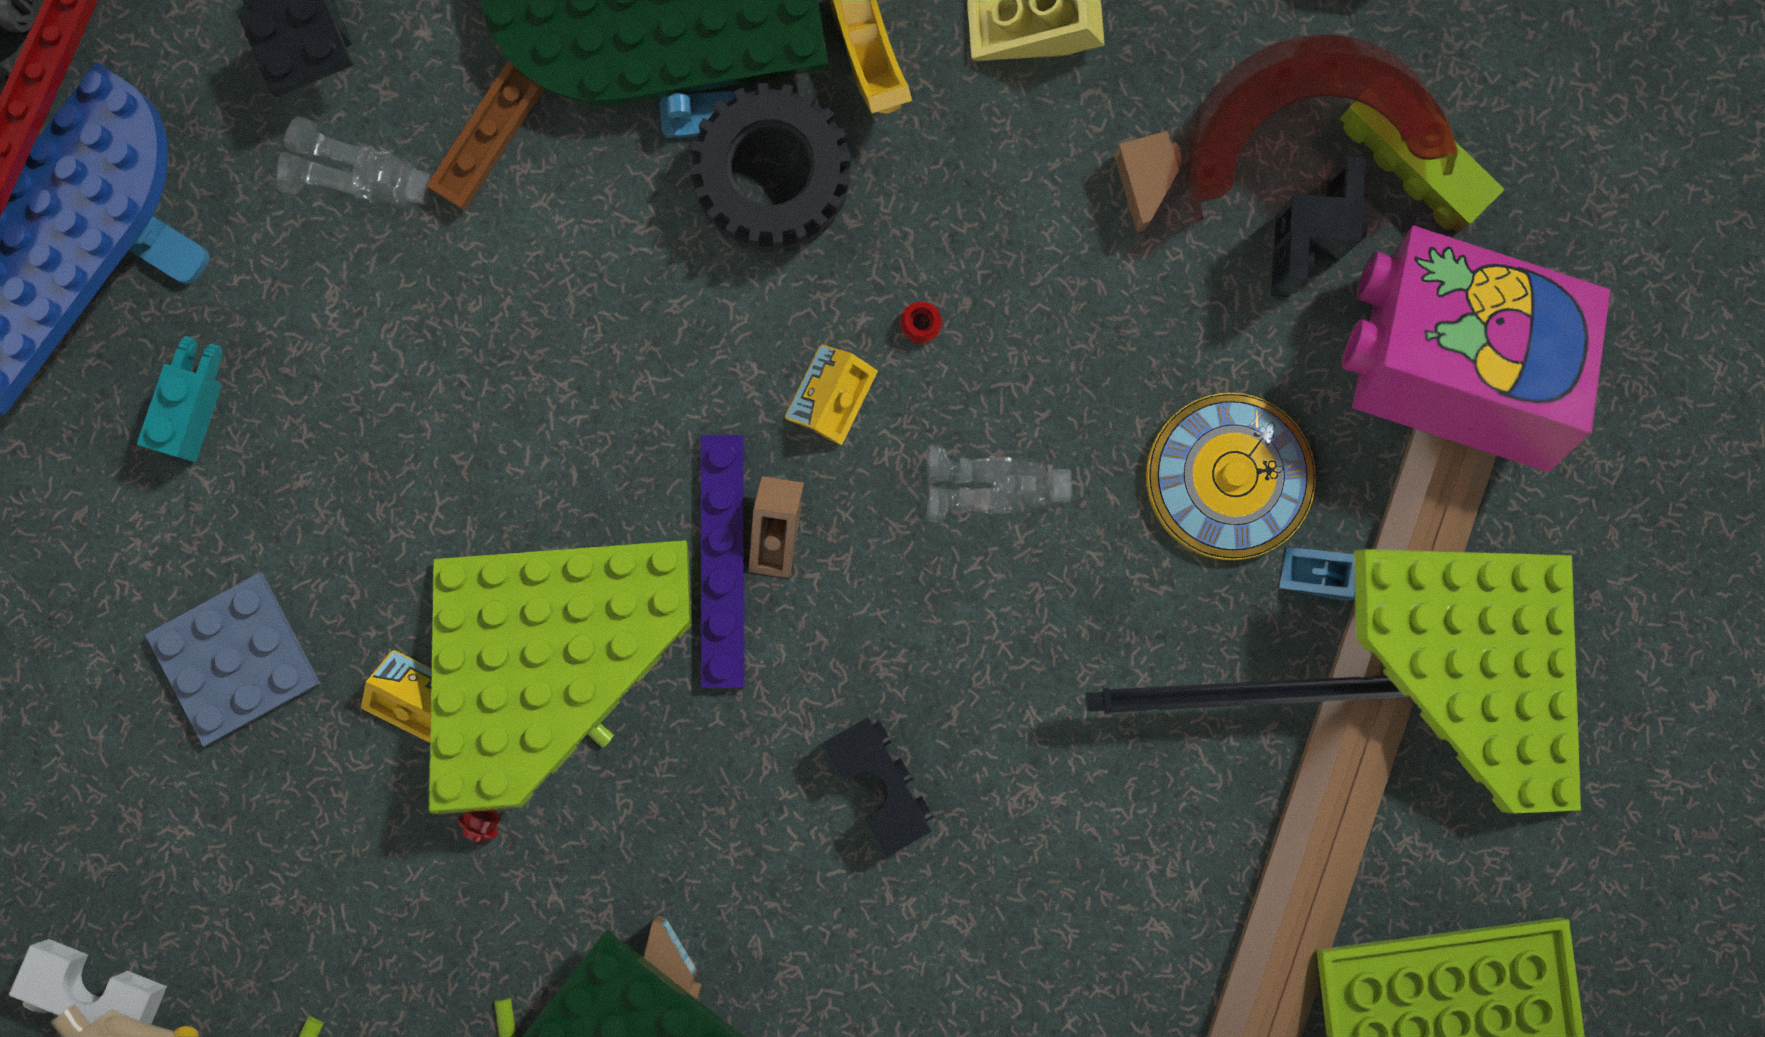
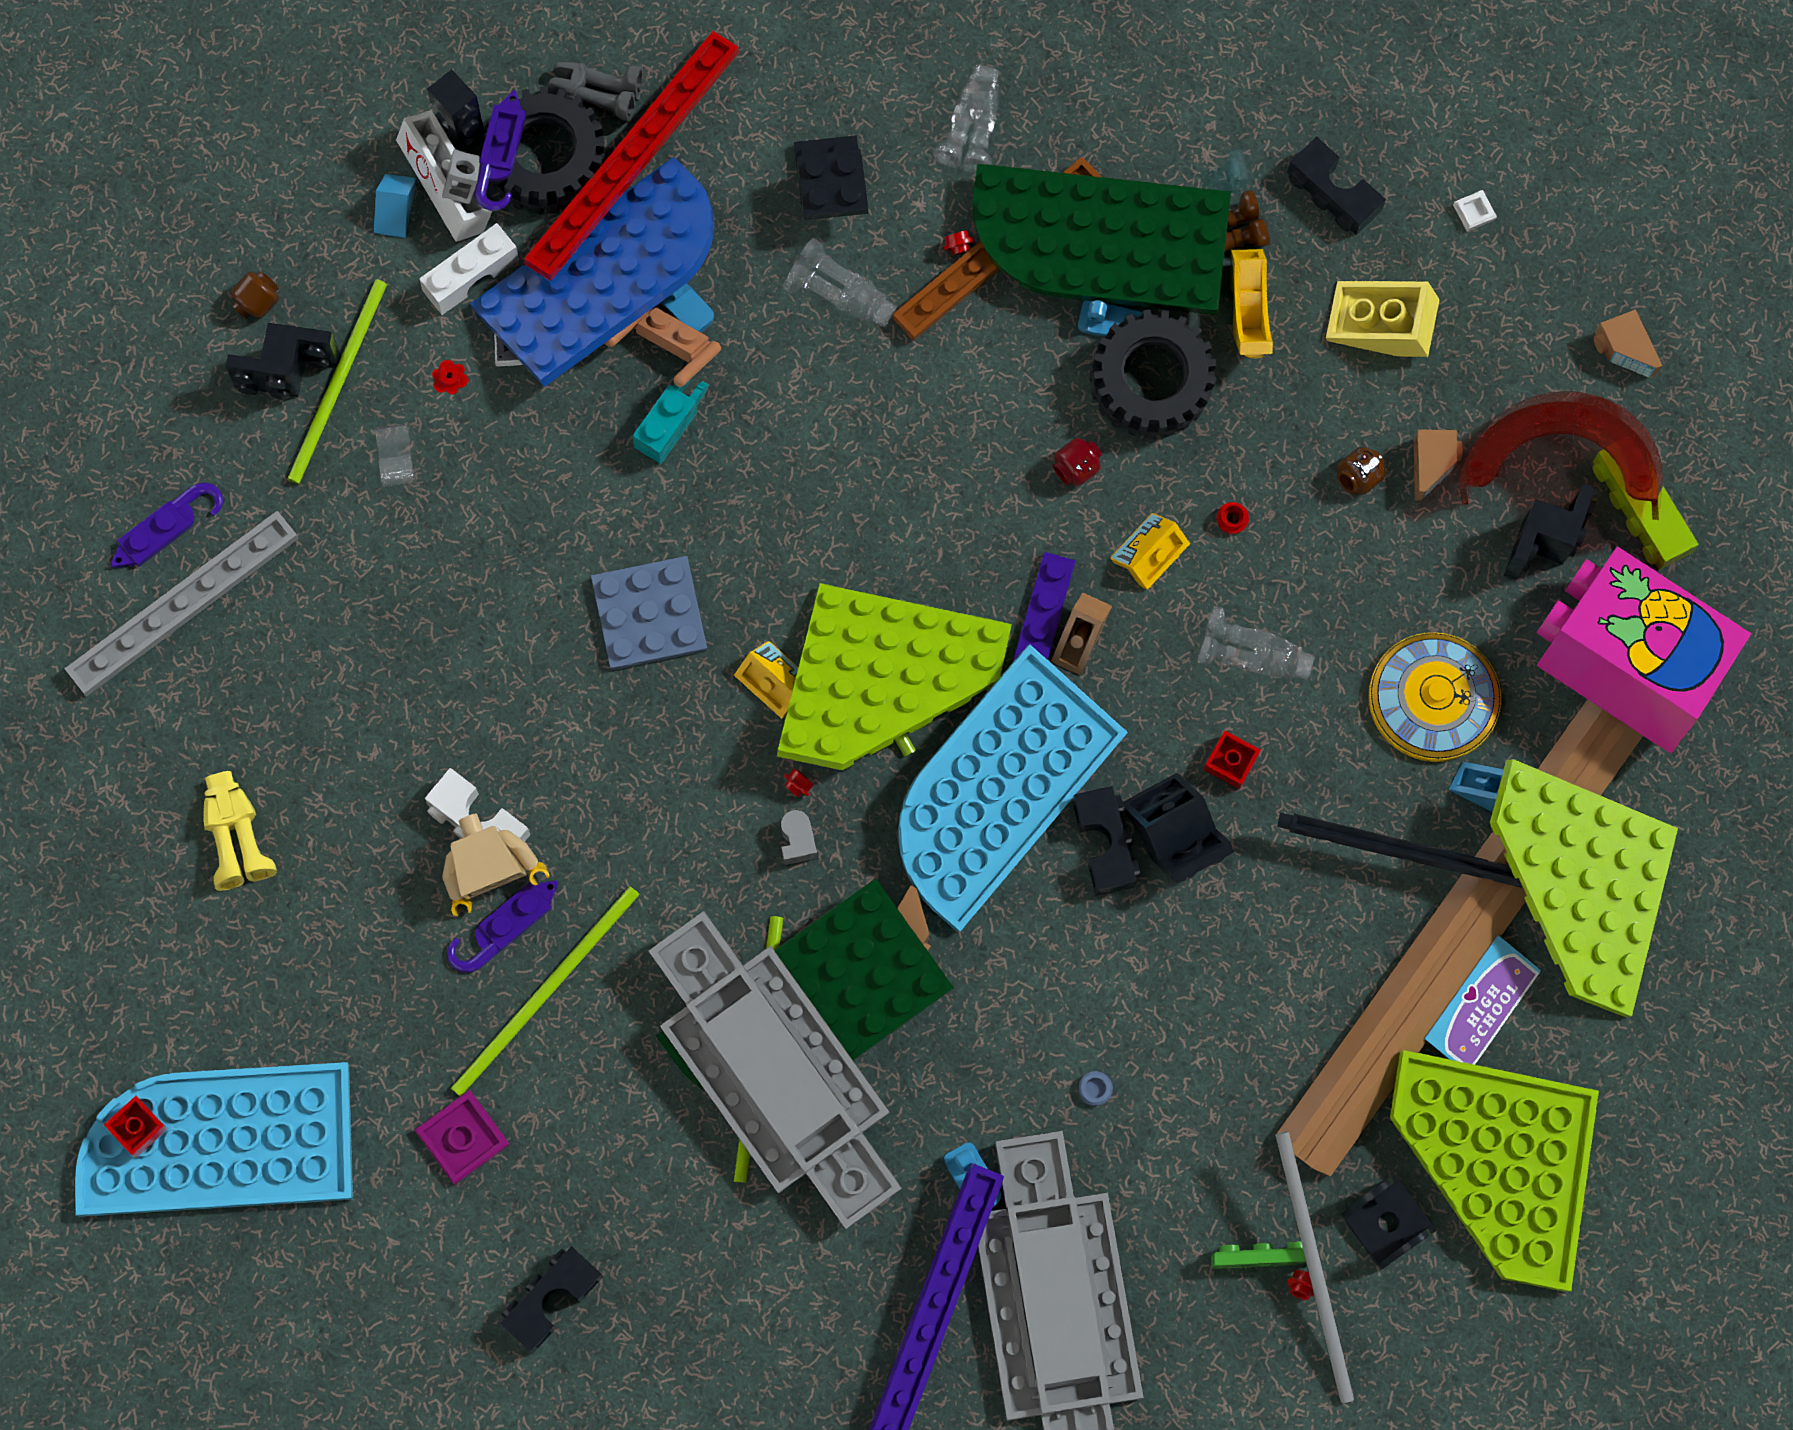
camera: 15 degrees right, 10 degrees down
(158, 296) = (675, 338): none -> nougat plate
(483, 68) = (958, 242): none -> red plate
(500, 894) = (799, 834): none -> light grey leg
(709, 309) = (1077, 462): none -> dark red head
(727, 756) = (999, 784): none -> medium azure plate
(963, 747) = (1177, 828): none -> black bracket
(1006, 633) = (1232, 759): none -> red piece
(1062, 216) = (1361, 471): none -> reddish brown head
(1396, 849) = (1483, 1003): none -> sticker

